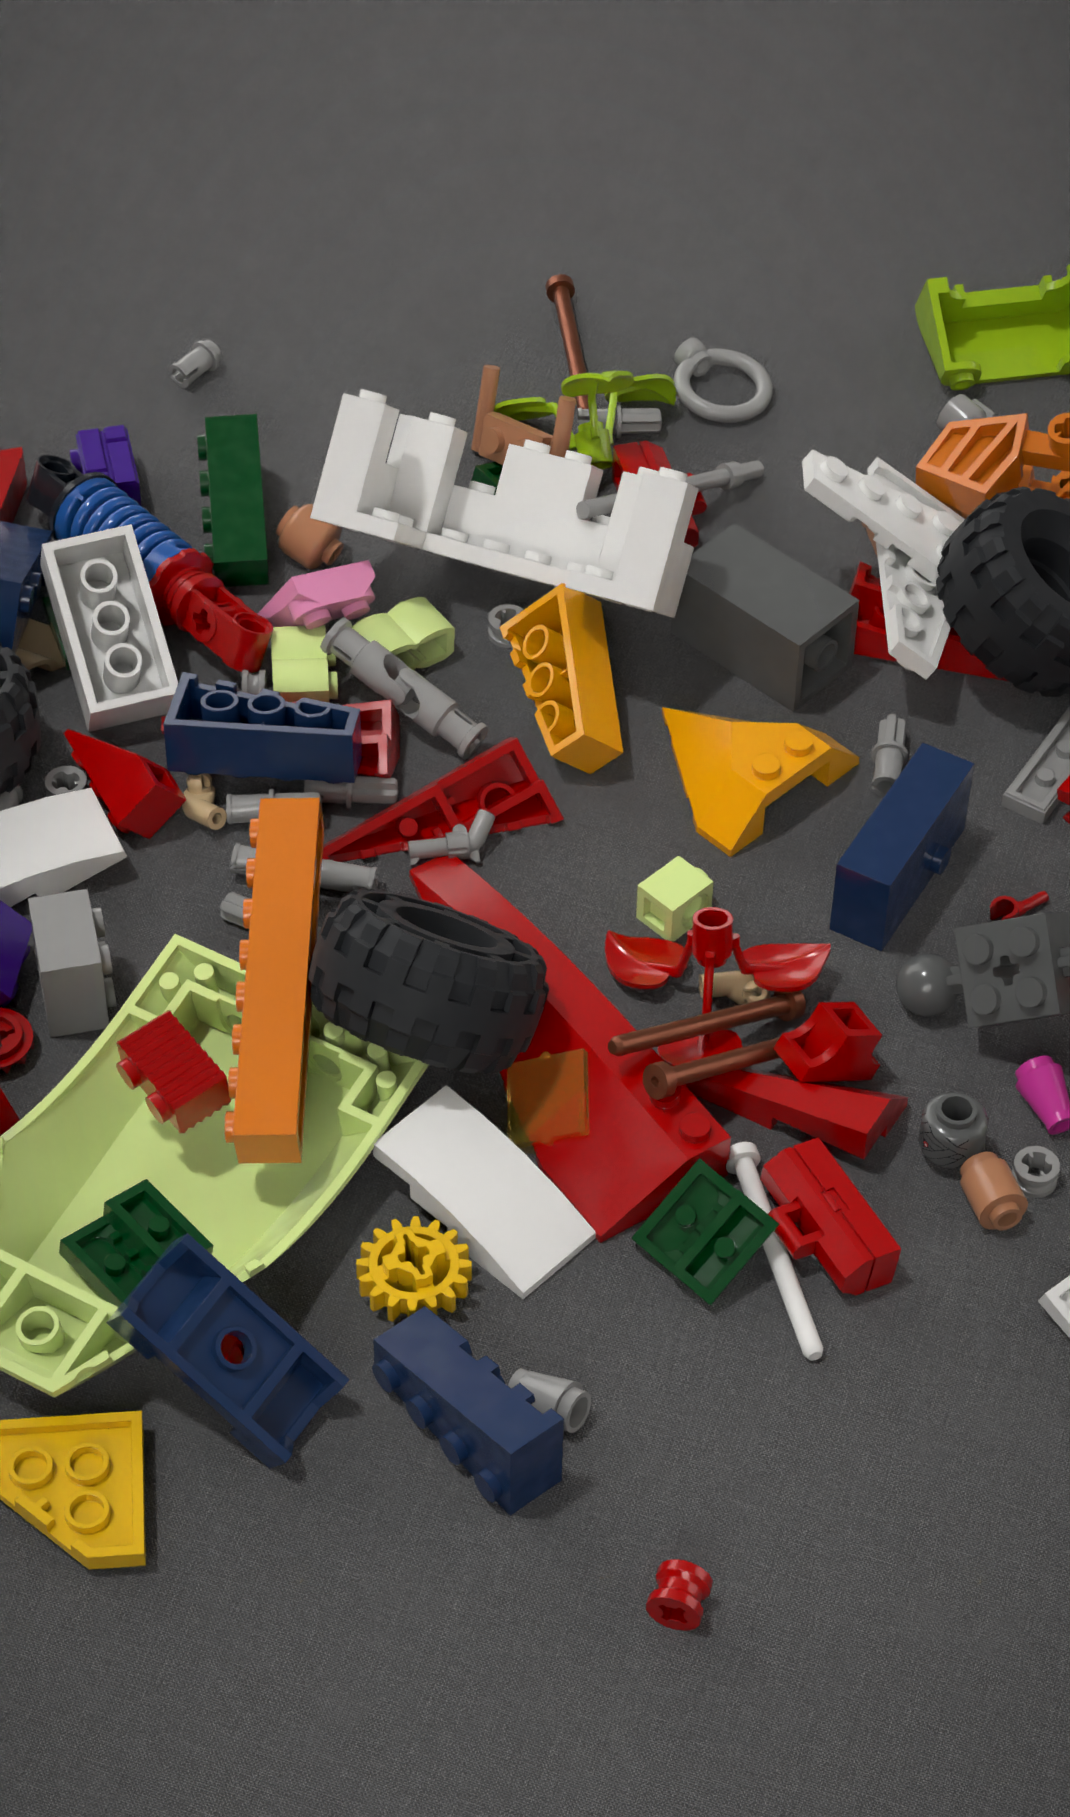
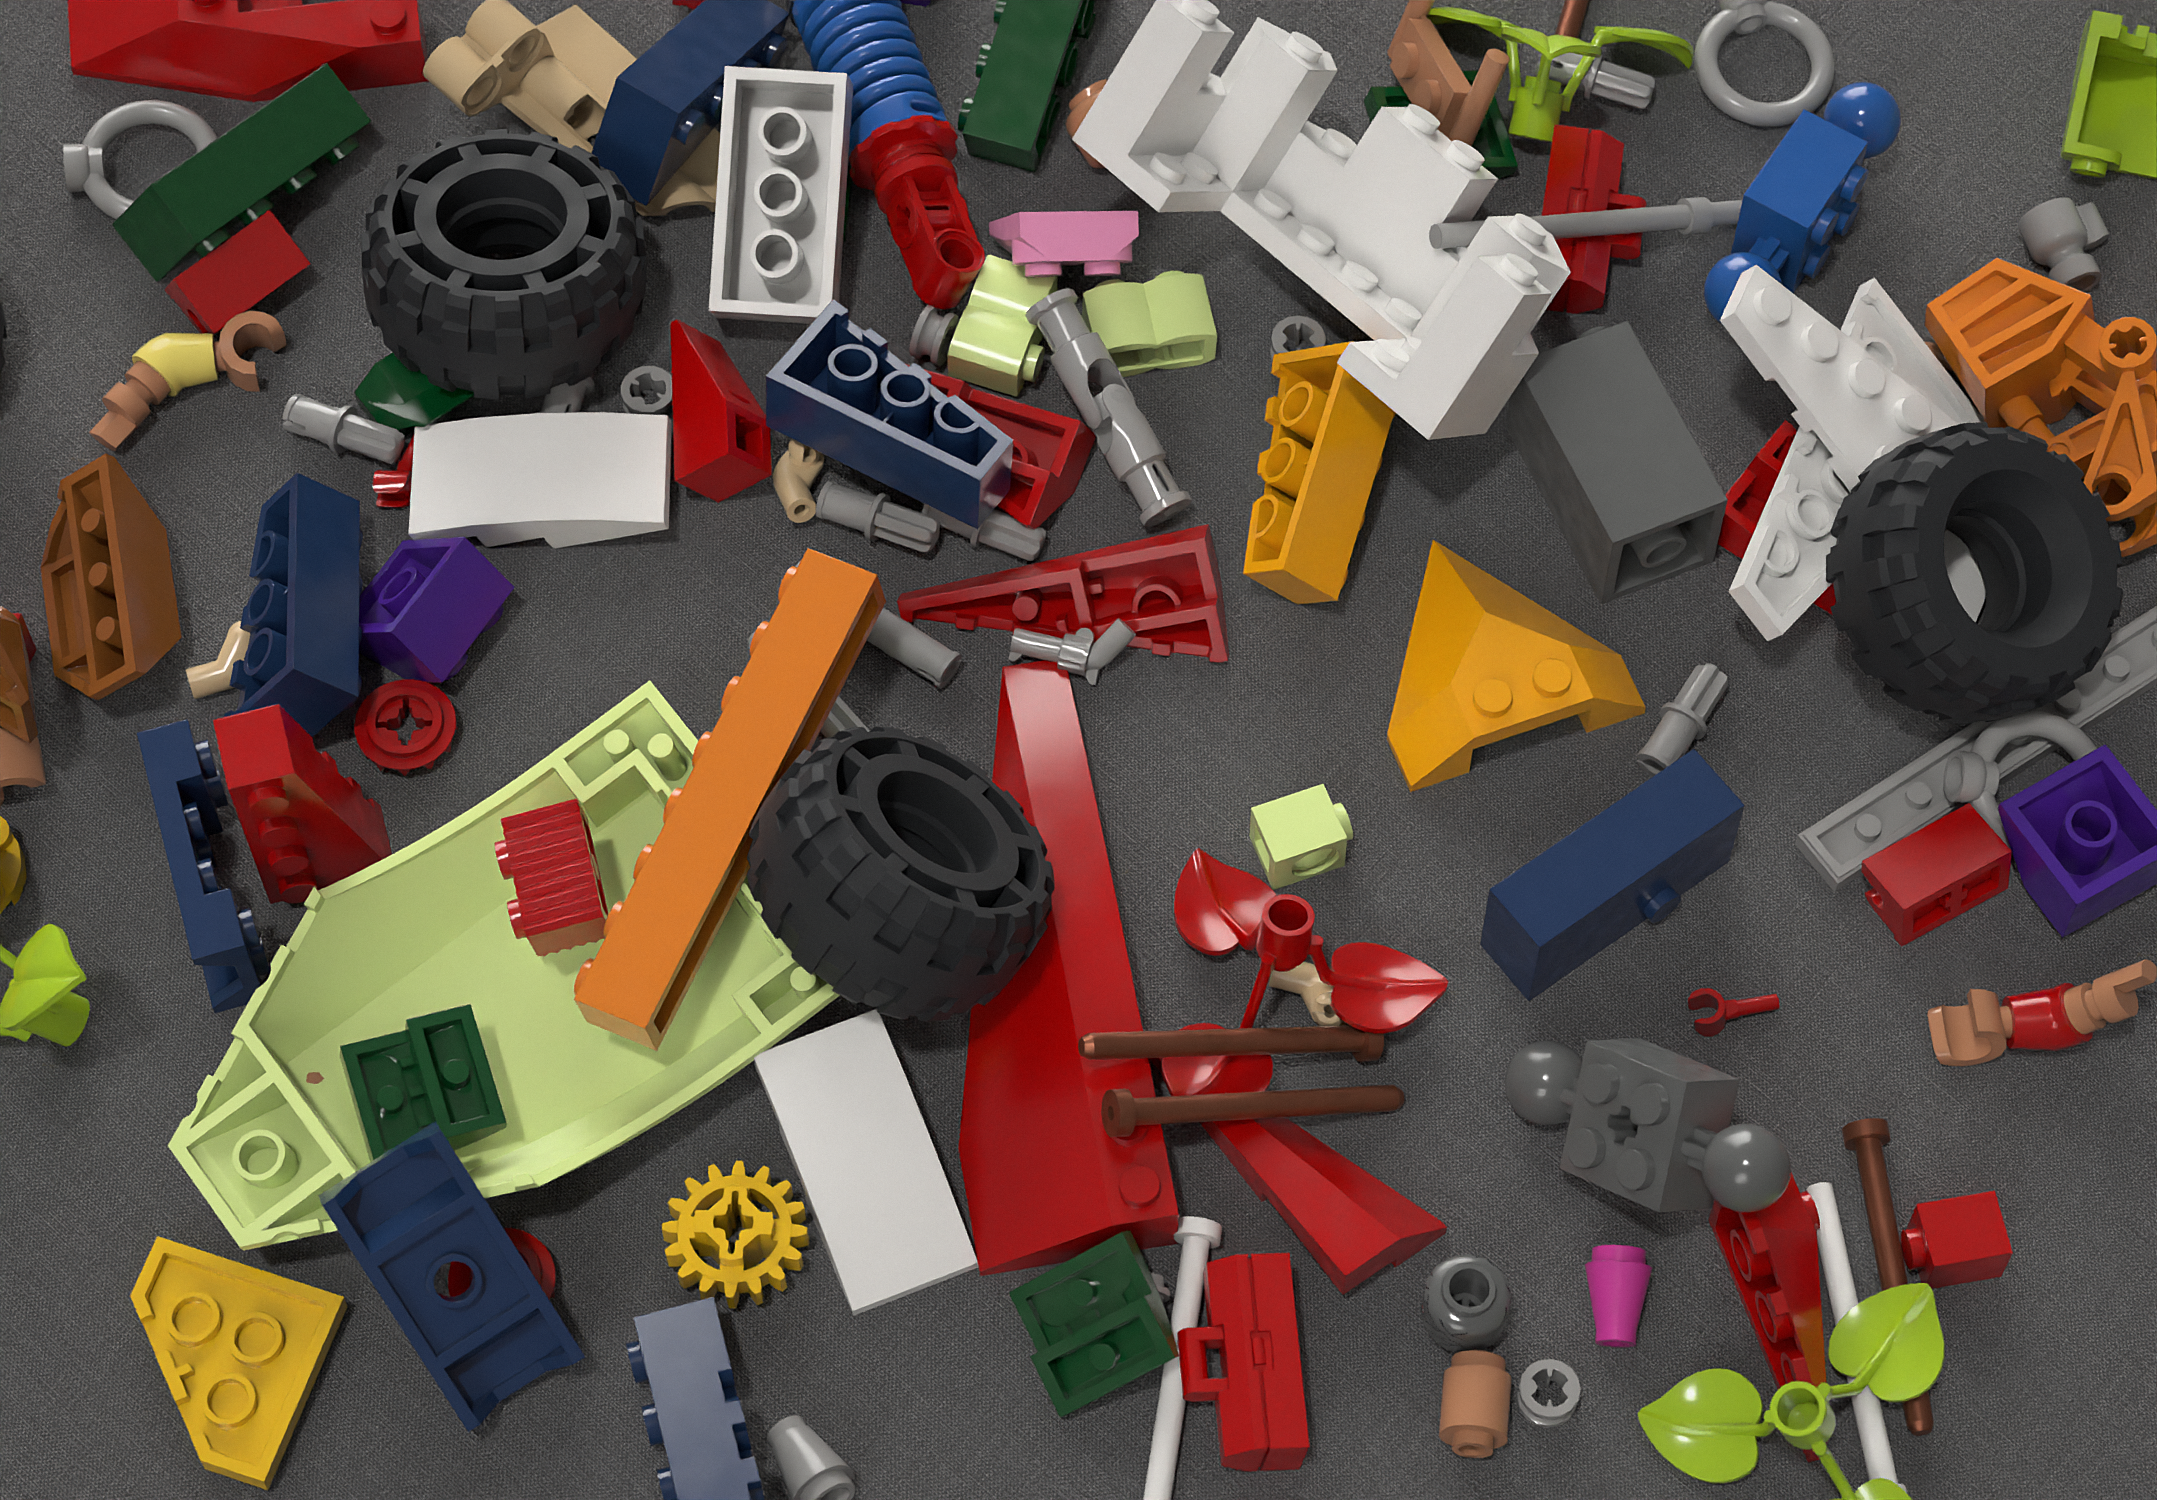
camera: 25 degrees right, 15 degrees up
(72, 962) = (525, 663): light grey brick -> none
(548, 1098) = (1000, 1065): clear yellow piece -> none
(797, 425) = (1807, 191): none -> blue brick
(831, 1045) = (1370, 1130): red brick -> none

